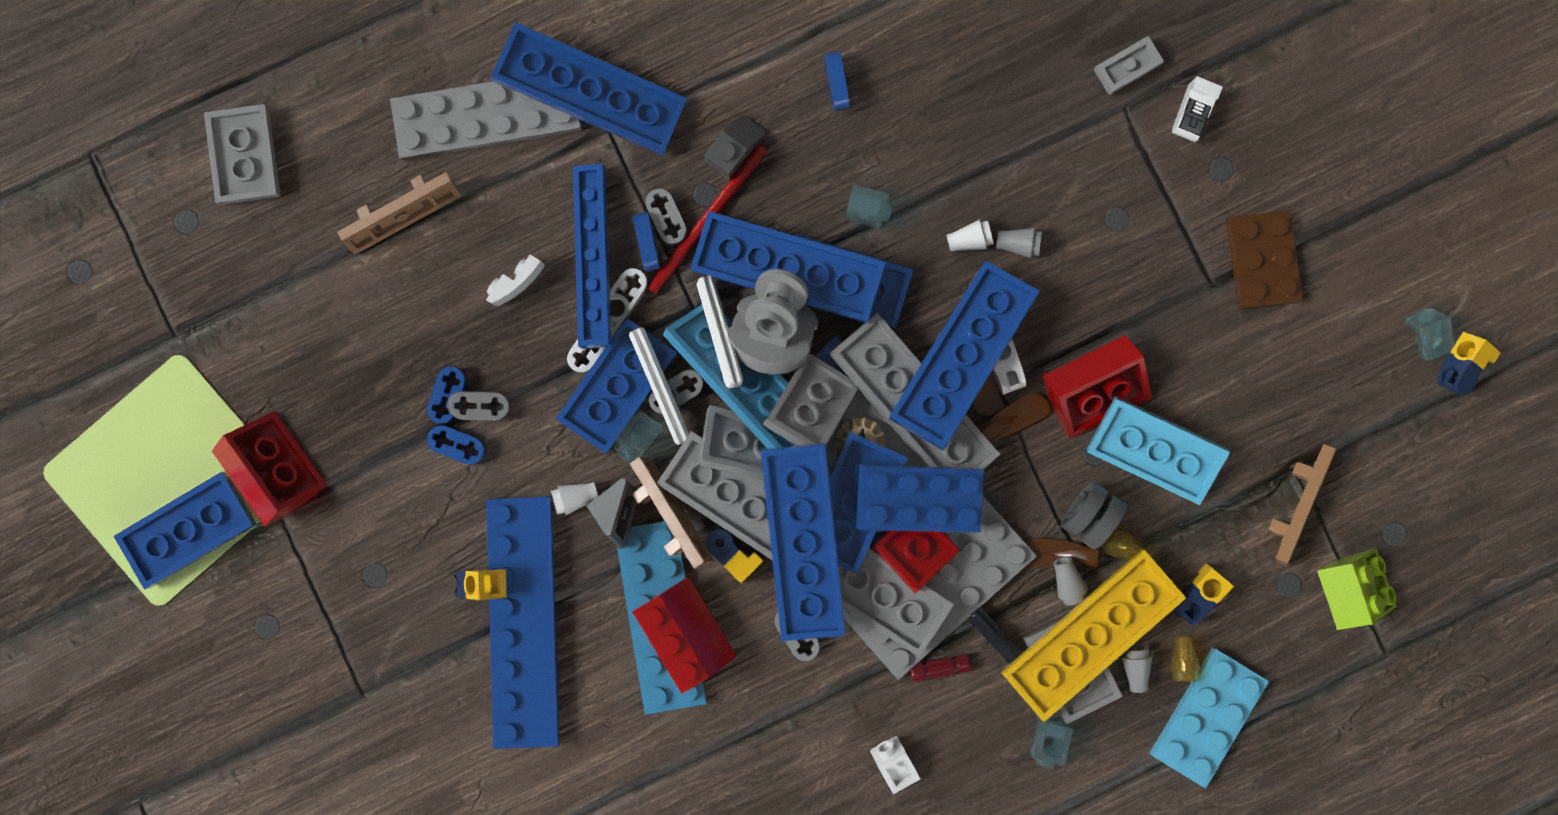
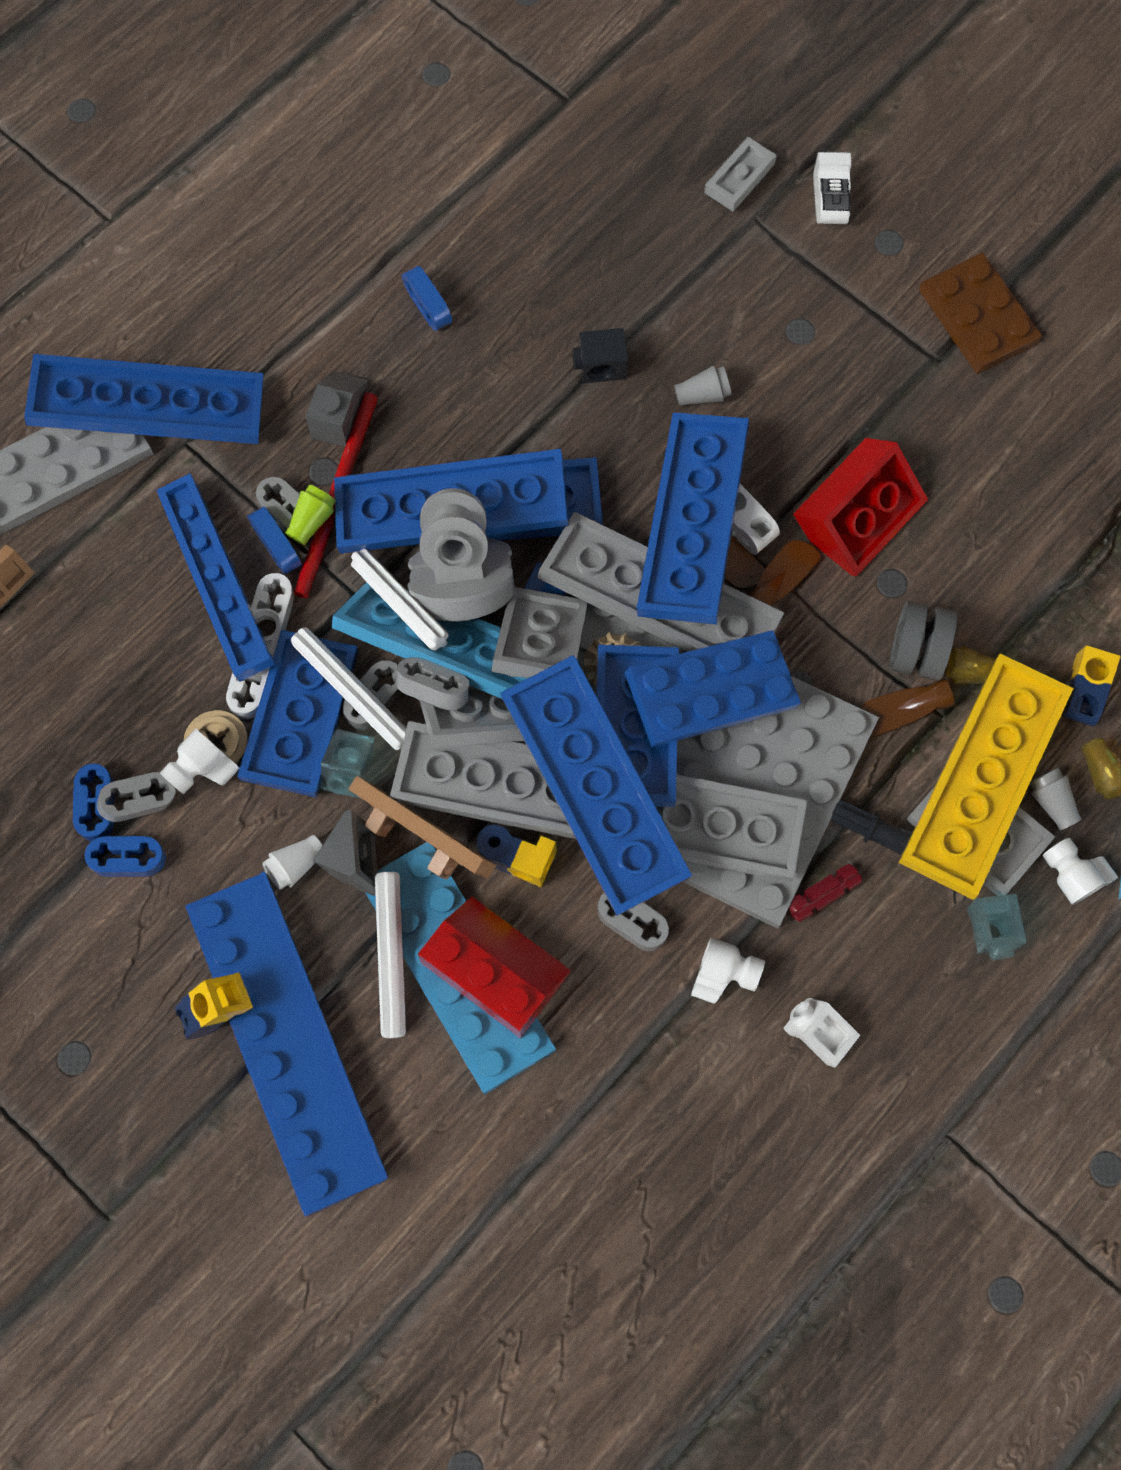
camera: 20 degrees left, 15 degrees down
(505, 289) = (127, 649): white slope -> none
(530, 396) = (198, 757): none -> white piece
(536, 377) = (220, 724): none -> tan gear
(616, 594) = (390, 954): none -> white axle
(679, 235) = (309, 514): none -> lime cone
(717, 413) = (432, 683): none -> light grey beam
(846, 692) = (720, 966): none -> white piece
(868, 207) = (516, 412): clear light blue brick -> none
(916, 555) = (735, 758): red tile -> none
(952, 184) = (601, 355): none -> black brick
(971, 237) = (647, 402): white cone -> none
(1070, 584) = (930, 729): light grey cone -> none
(1125, 731) = (1078, 876): none -> white piece
(1158, 450) = (961, 545): medium azure plate -> none

